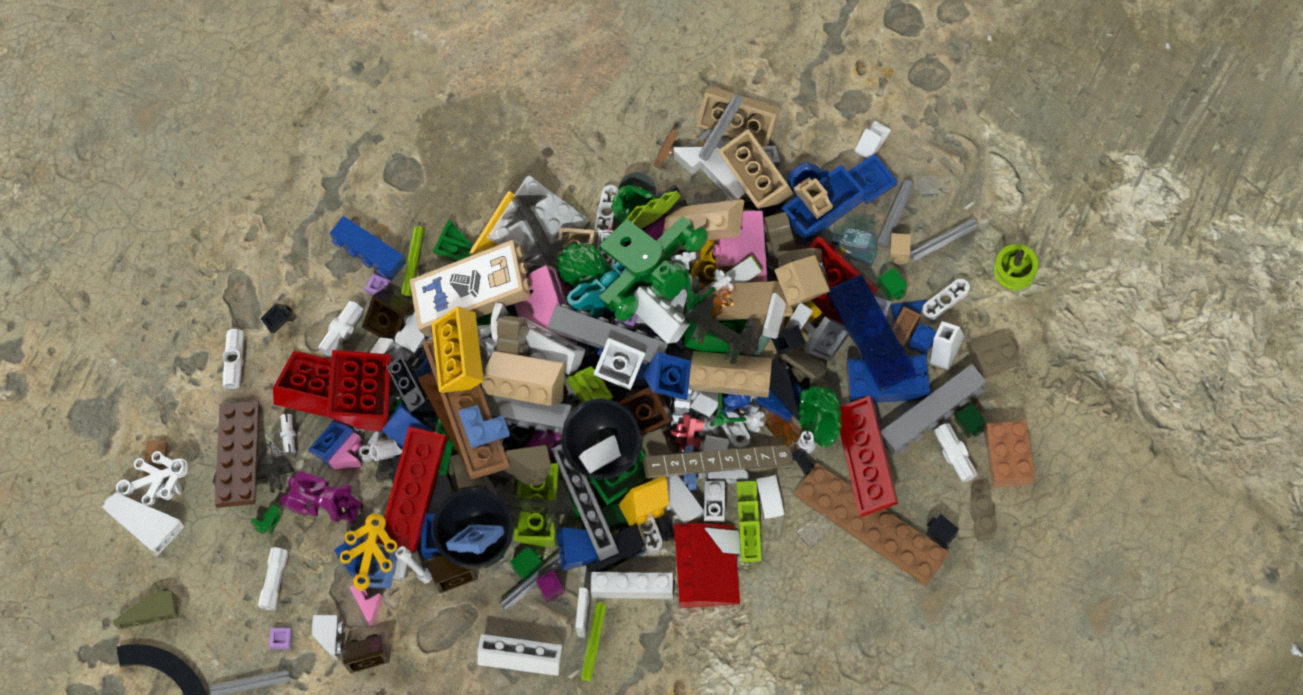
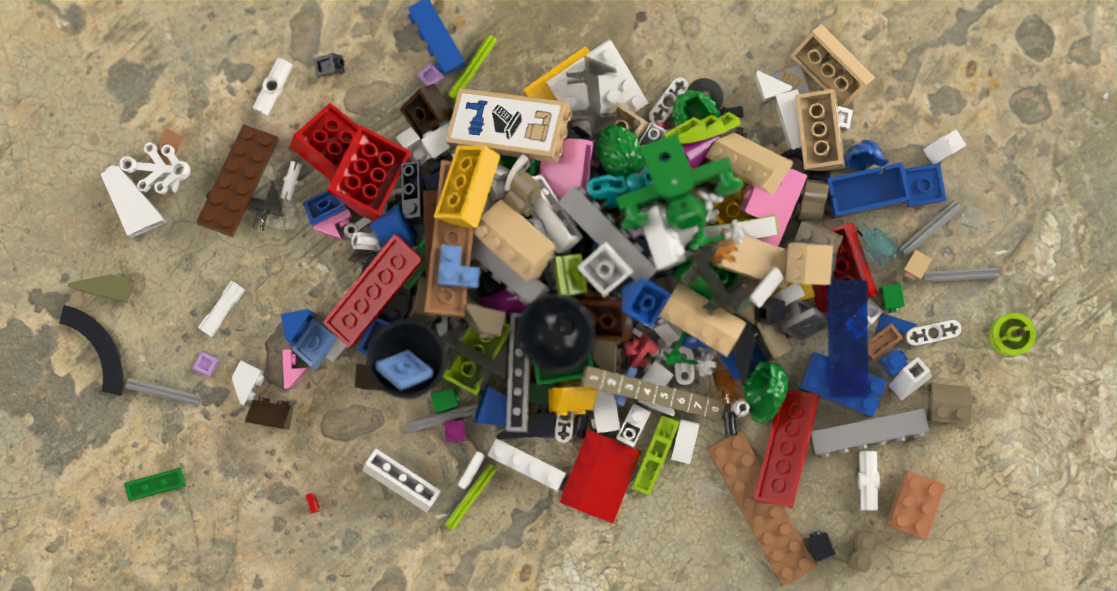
camera: 25 degrees right, 15 degrees up
(271, 519) = (242, 253): green bracket -> none
(321, 496) = (301, 265): magenta hips -> none
(341, 328) = (379, 103): white piece -> none
(368, 548) = (312, 327): yellow plant -> none
(404, 555) = (341, 349): white bar -> none
(452, 244) = (516, 70): green wing -> none
(600, 454) = (549, 344): white slope -> none
(666, 149) = (750, 67): medium nougat plate -> none
(721, 127) = (810, 73): light grey axle -> none
(726, 540) = (627, 462): white sticker -> none
(813, 196) = (860, 183): tan brick -> none
(970, 421) = (896, 459): dark green brick -> none

